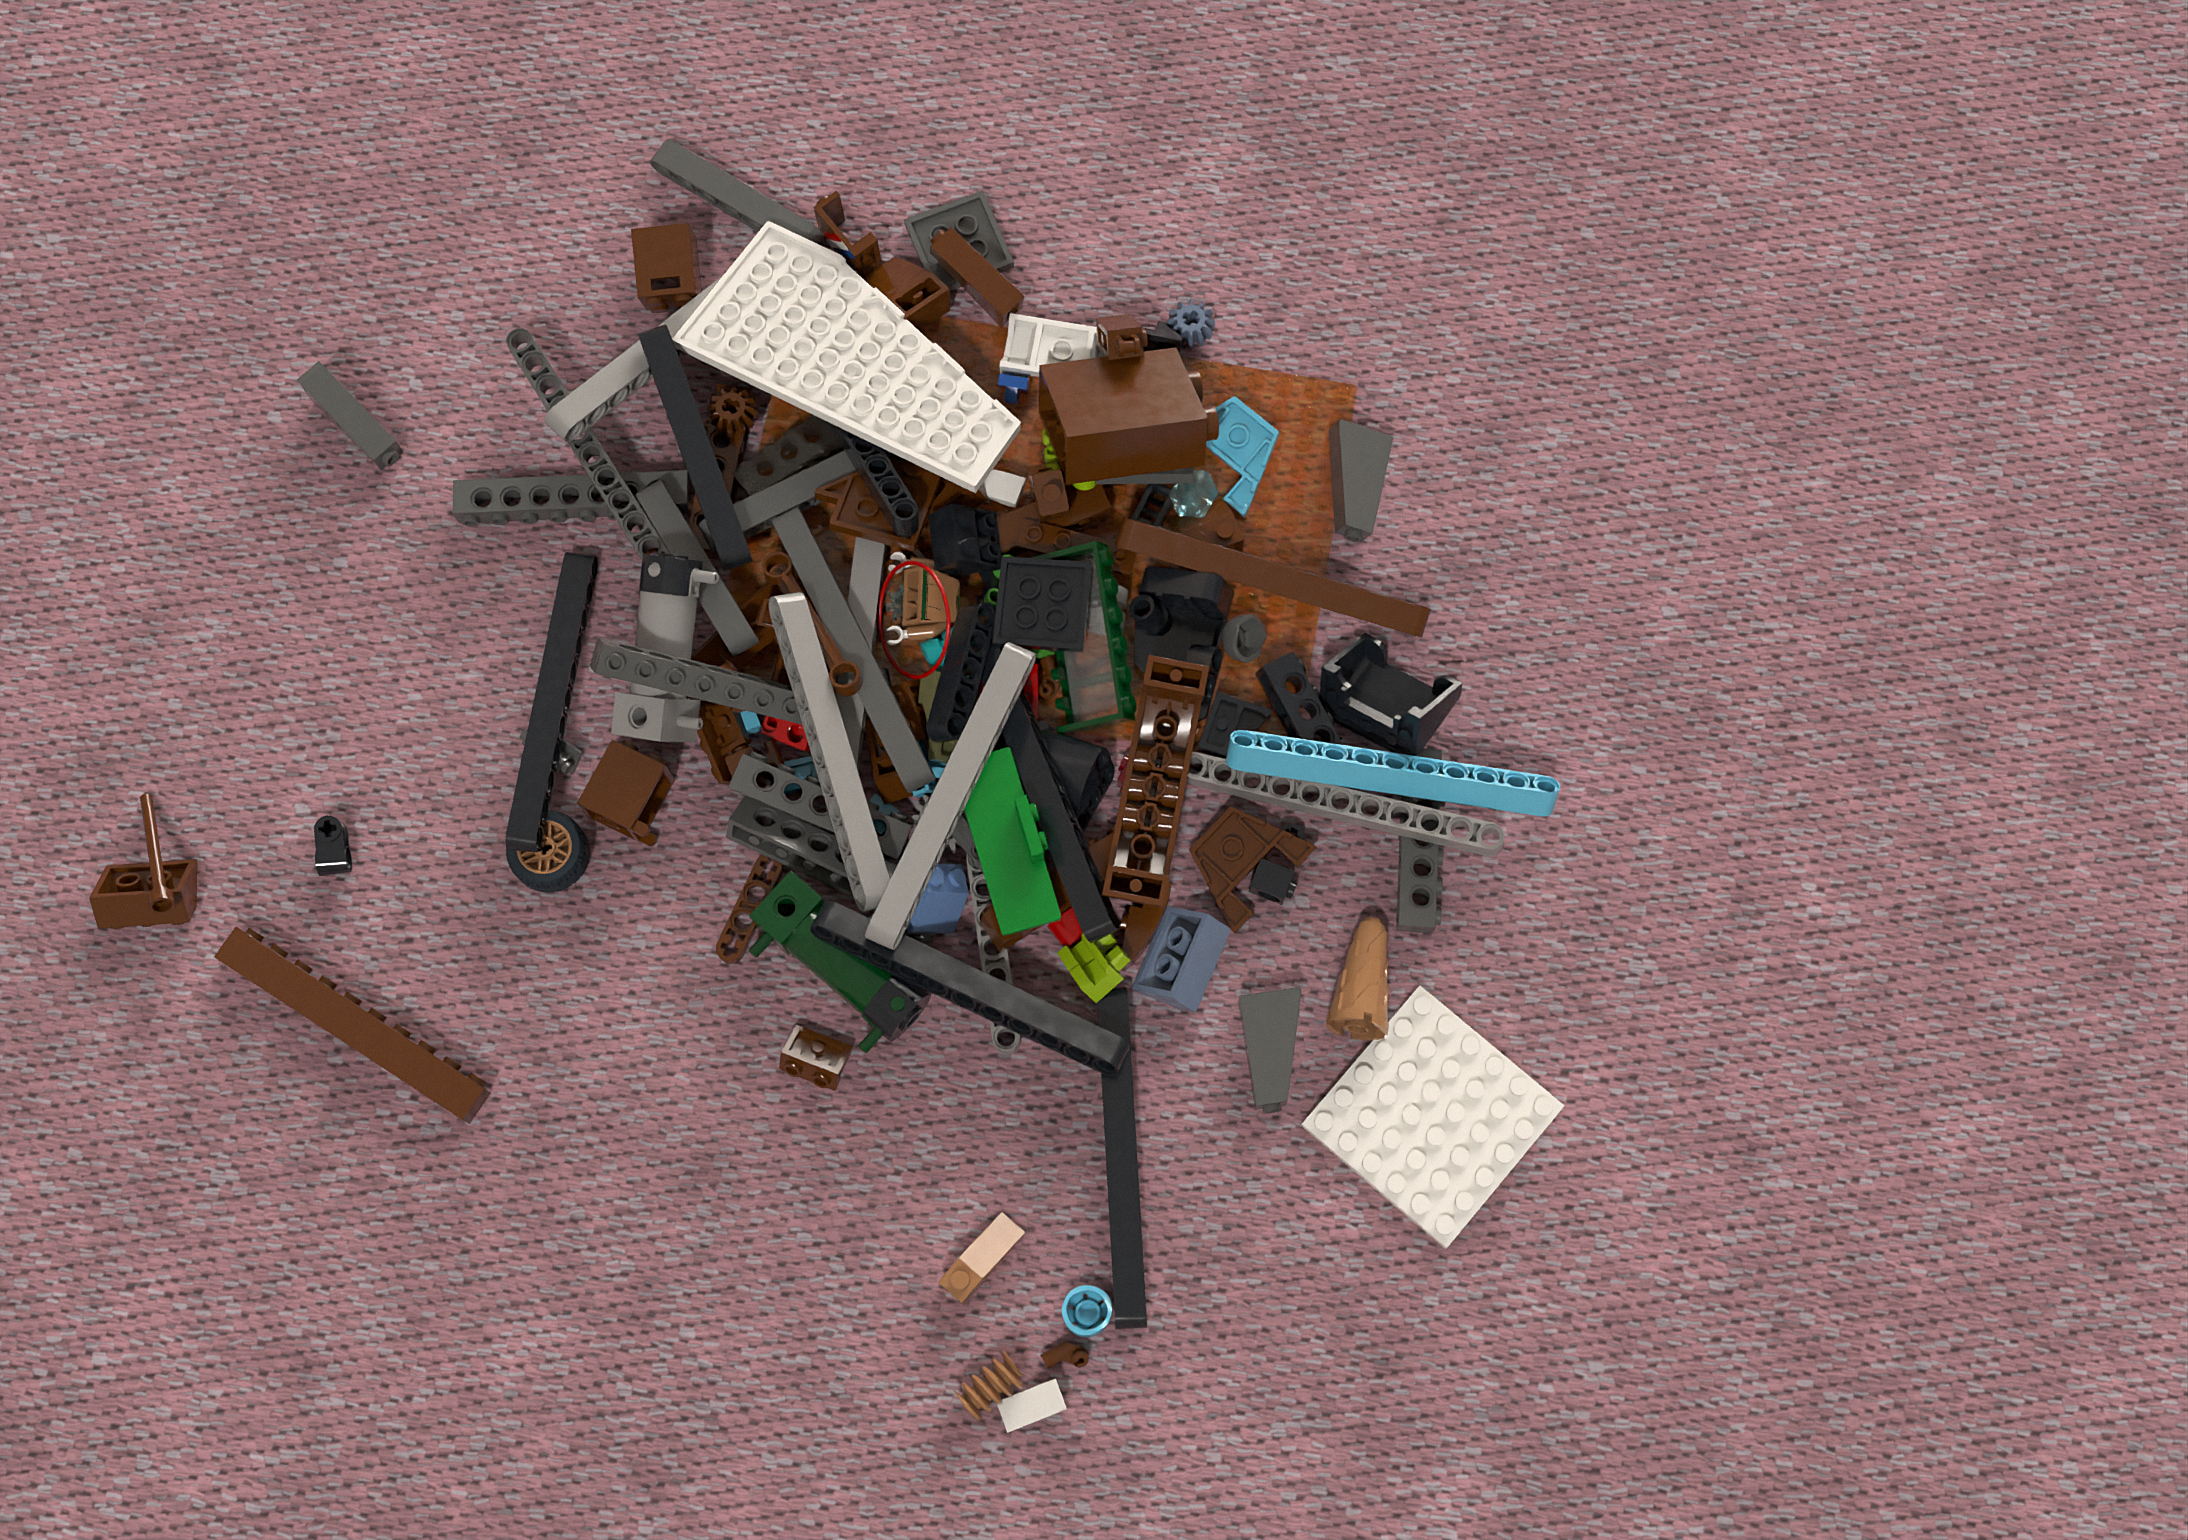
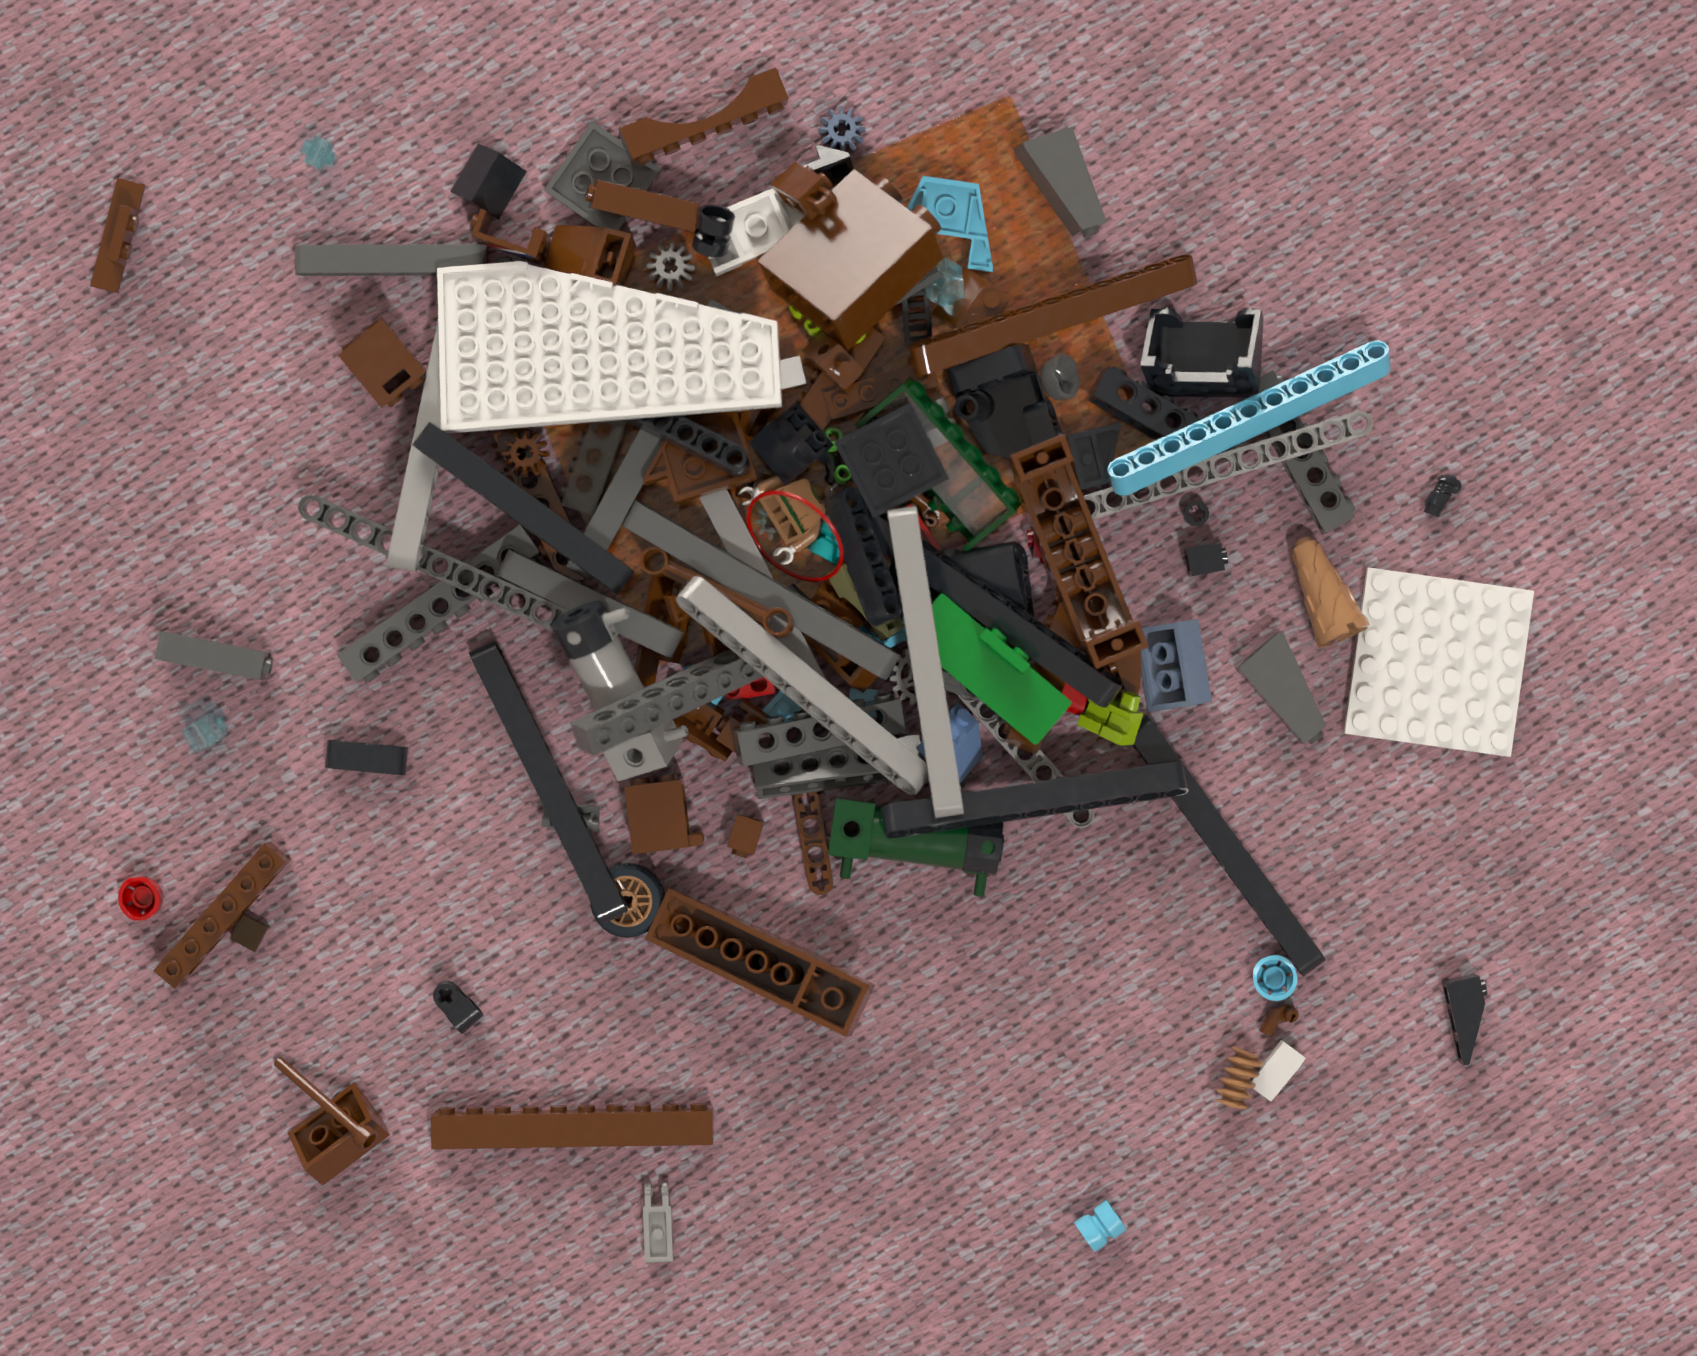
camera: 30 degrees left, 15 degrees up
(143, 583) = (145, 895): none -> red helmet
(193, 638) = (222, 915): none -> reddish brown brick
(206, 670) = (249, 932): none -> dark brown tile
(297, 478) = (205, 732): none -> clear light blue brick
(362, 1166) = (658, 1226): none -> light grey hinge
(415, 585) = (366, 757): none -> black beam
(529, 48) = (118, 235): none -> reddish brown bracket
(623, 979) = (760, 962): none -> reddish brown slope
(692, 862) = (745, 835): none -> reddish brown brick
(738, 81) = (318, 153): none -> clear light blue gear
(764, 1442) = (1100, 1226): none -> medium azure wheel
(814, 1057) = (943, 922): reddish brown bracket -> none
(864, 189) = (488, 181): none -> black slope
(976, 345) = (661, 270): none -> light grey gear
(981, 1258) = (1170, 990): slope -> none
(1013, 387) = (735, 280): blue tile -> none
(1017, 331) = (713, 230): none -> black wheel
(1021, 229) = (650, 137): none -> reddish brown arch
(1233, 850) = (1159, 552): reddish brown wing -> none
(1252, 1462) = (1465, 1009): none -> black slope
(1528, 962) = (1441, 494): none -> black arm

